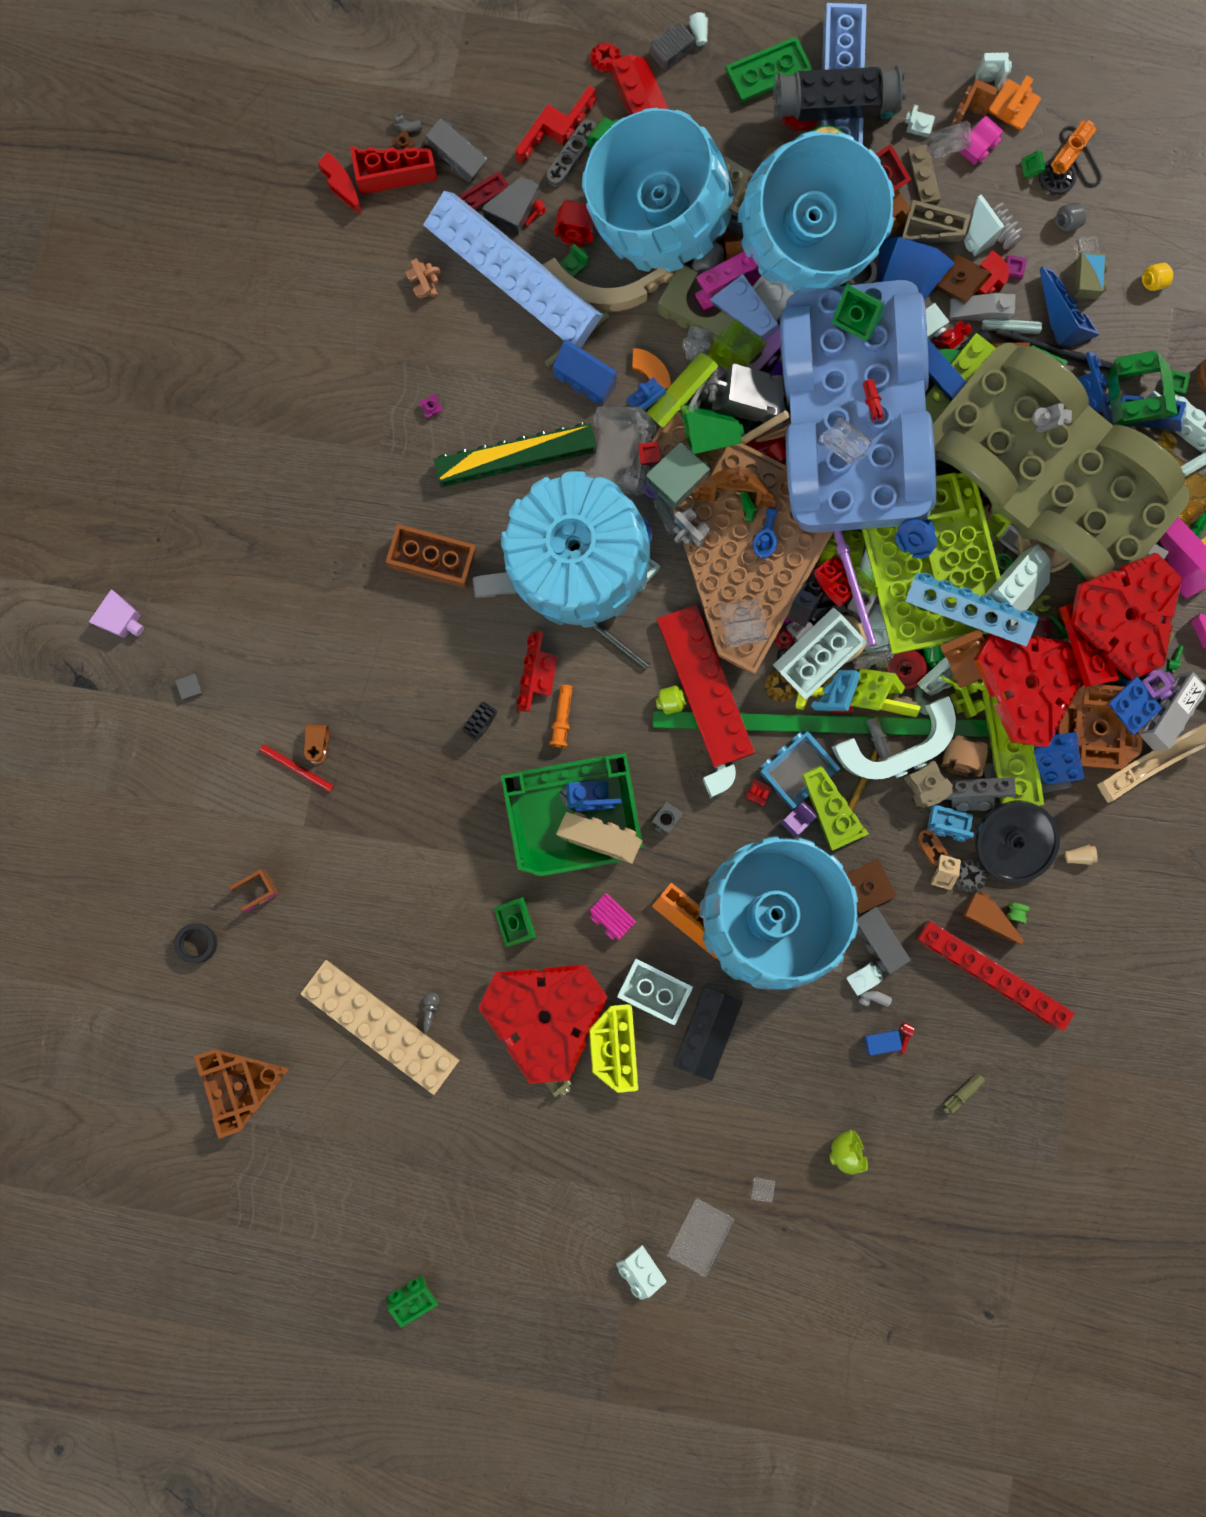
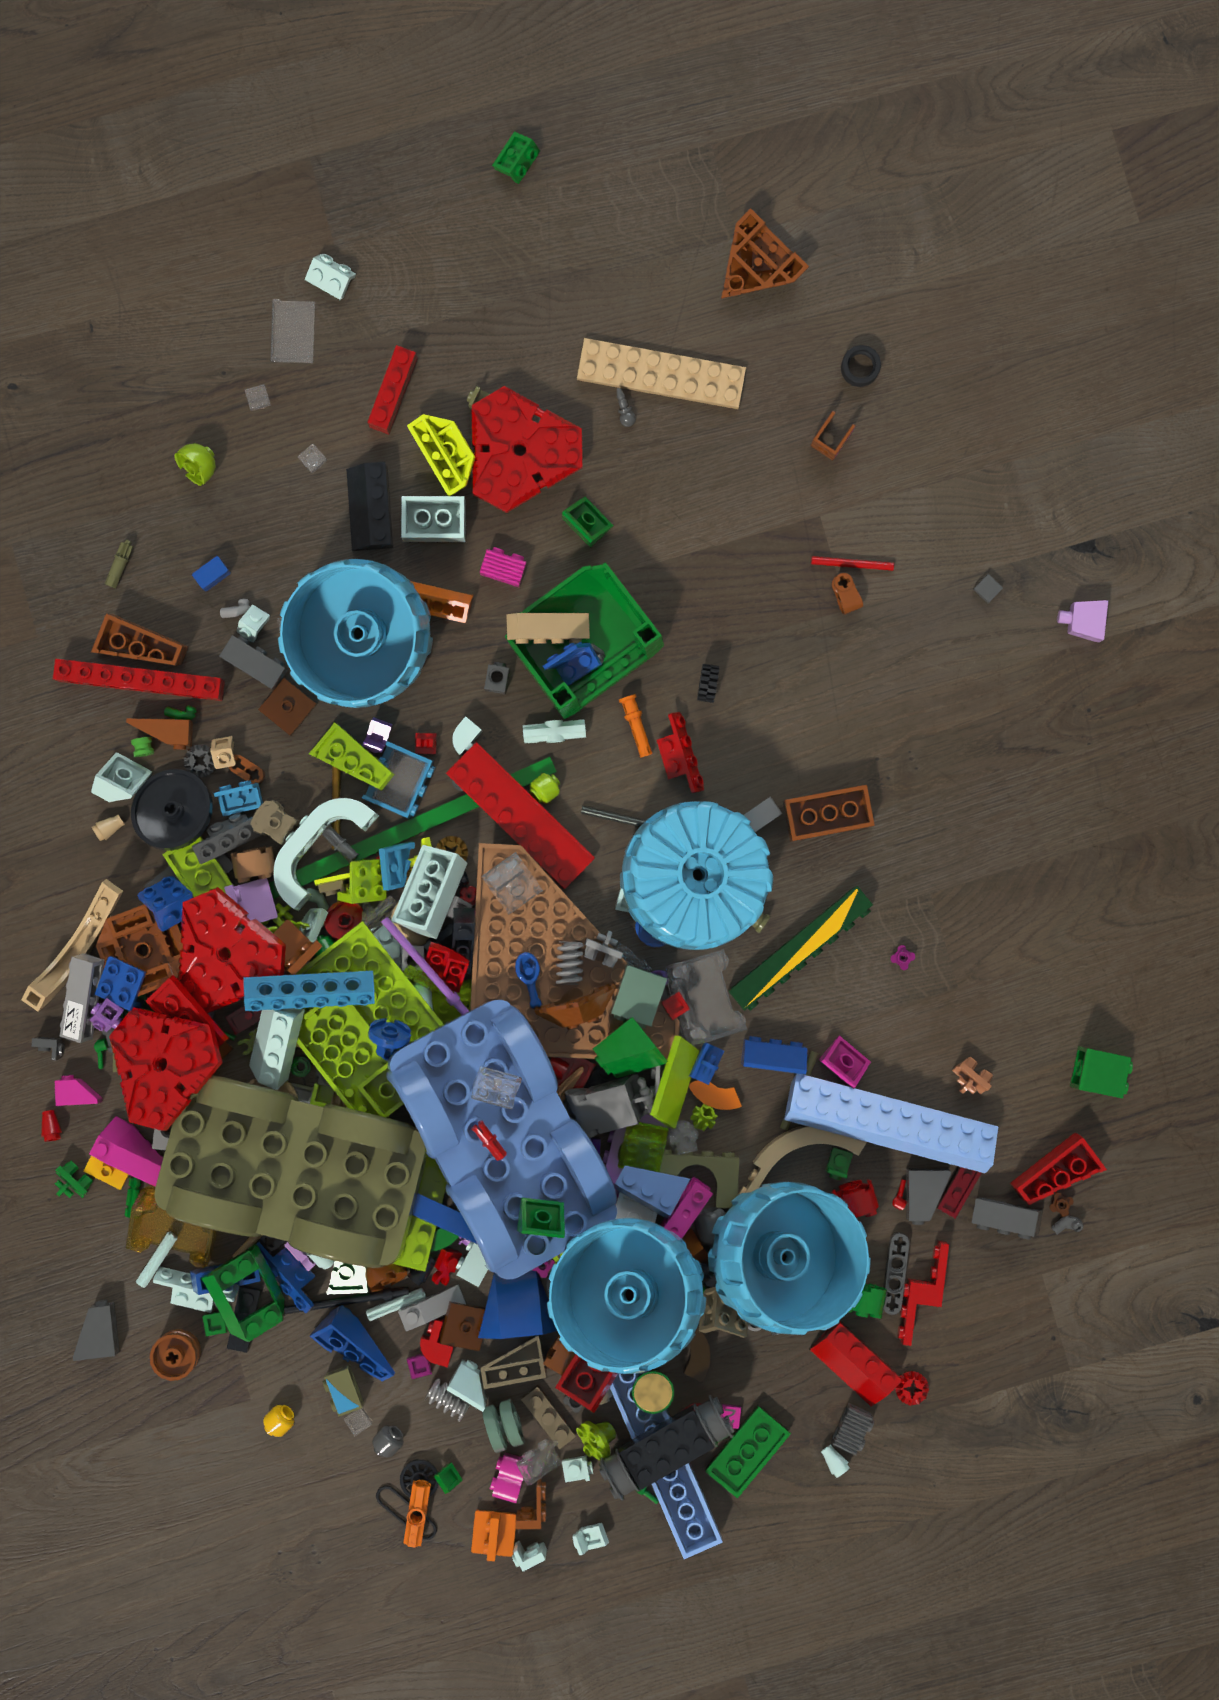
camera: 150 degrees right, 5 degrees up
(313, 230) = (1101, 1072): none -> green slope
(339, 181) = (1100, 1134): red slope -> none
(526, 342) = (845, 1061): none -> dark pink slope
(634, 1133) = (392, 390): none -> red brick
(638, 746) = (554, 731): none -> light aqua piece
(671, 353) = (703, 1117): none -> lime gear
(723, 529) = (570, 962): none -> light grey piece
(739, 1105) = (312, 458): none -> clear plate
(748, 507) = (556, 996): green bar -> none
(765, 427) = (580, 1081): tan bar -> none
(766, 105) = (733, 1413): none -> dark pink tile
(891, 134) = (596, 1438): none -> lime plate
(908, 1031) = (194, 596): red hand -> none
(935, 63) = (590, 1538): none -> light aqua bracket
(967, 180) = (503, 1425): none -> sand green wheel
(970, 925) = (177, 714): none -> green arm
(980, 1010) = (133, 641): none -> dark orange wedge
(982, 722) = (255, 899): none -> lavender bracket
(1051, 417) = (317, 1202): light grey hips -> none
(1051, 892) = (119, 779): none -> light aqua slope
(1144, 383) = (246, 1304): none -> black plate

